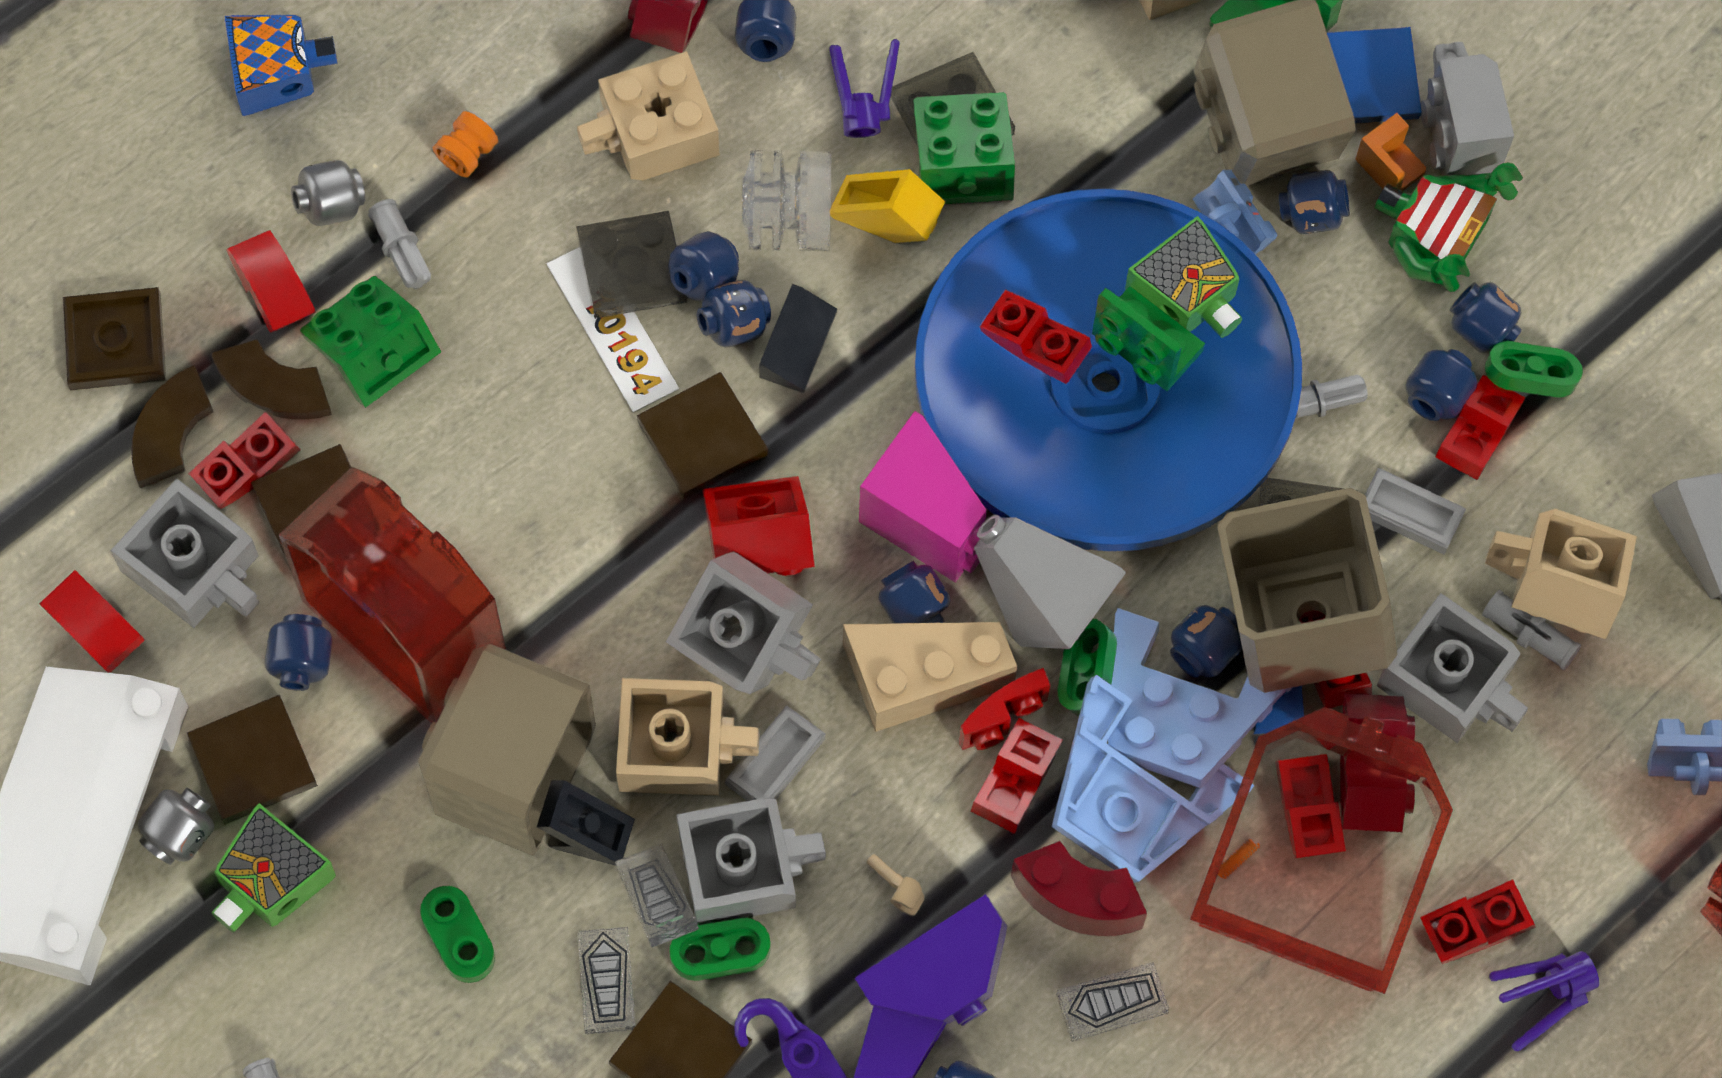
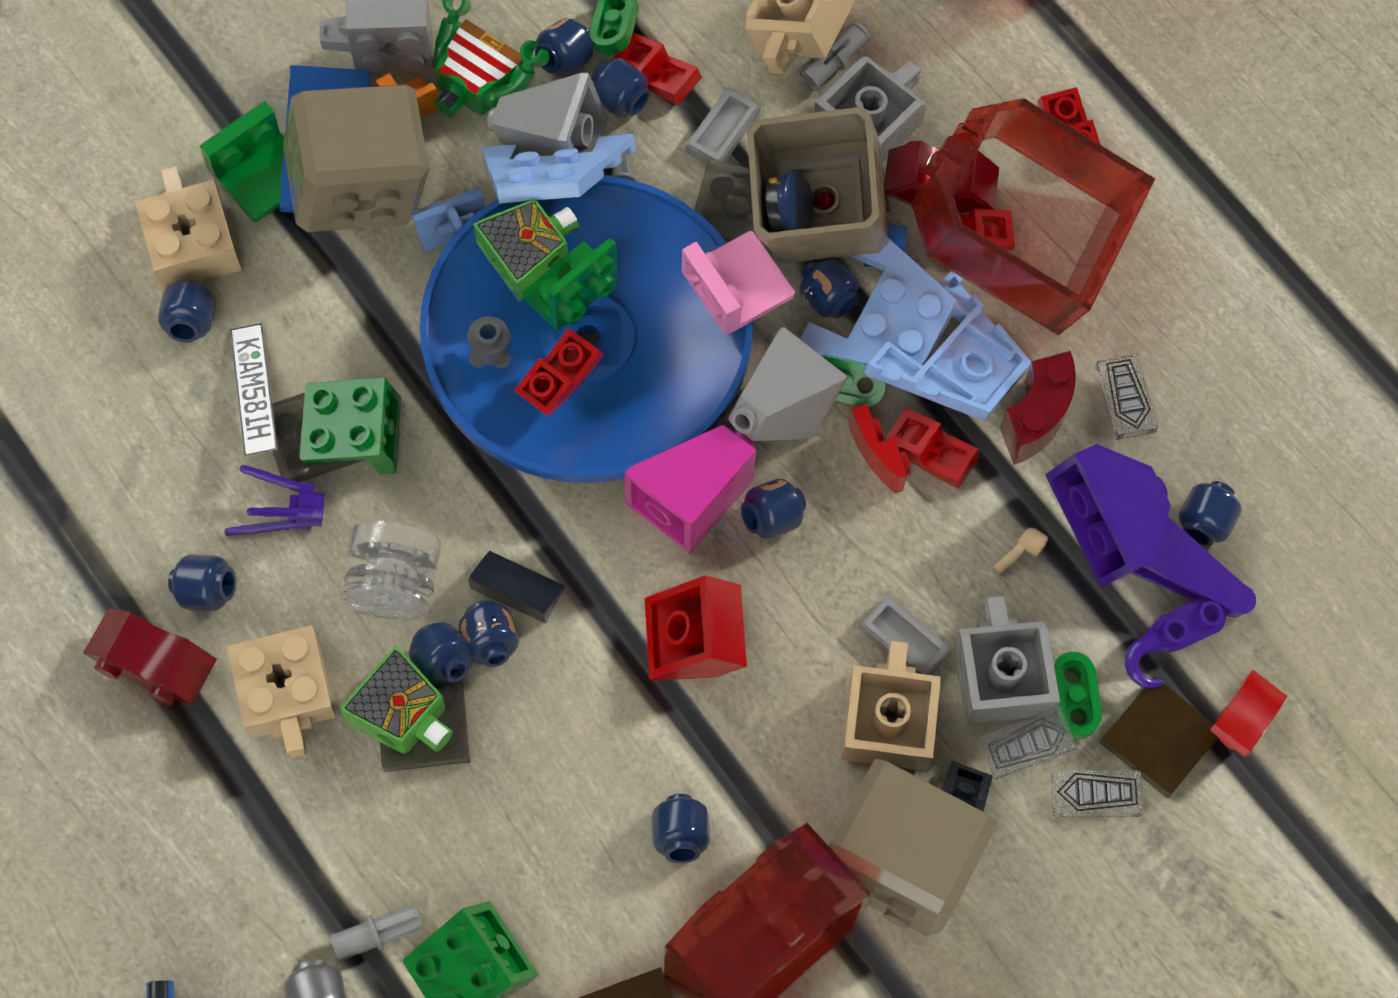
camera: 85 degrees left, 0 degrees up
(456, 932) = (1052, 918): green plate -> none
(463, 147) = (282, 864): orange wheel -> none
(529, 529) = (680, 828): none -> dark blue head
(617, 339) = (491, 744): white sticker -> none
(636, 225) = (398, 706): none -> torso
(702, 435) = (598, 674): dark brown tile -> none
(737, 596) = (797, 643): light grey hinge -> none
(888, 205) = (401, 487): yellow slope -> none
(925, 666) = (840, 506): tan wedge -> none
(997, 45) = (253, 389): none -> sticker
(1062, 267) = (487, 350): none -> dark grey brick
(1170, 510) = (736, 281): none -> bright pink bracket
(1280, 563) = (789, 202): none -> dark blue piece
(1285, 306) = (555, 176): none -> light blue wing
(1315, 201) = (446, 157): dark blue head -> none
(1373, 318) = (551, 117): none -> light grey slope
(1565, 977) = (1122, 72): dark purple plant -> none

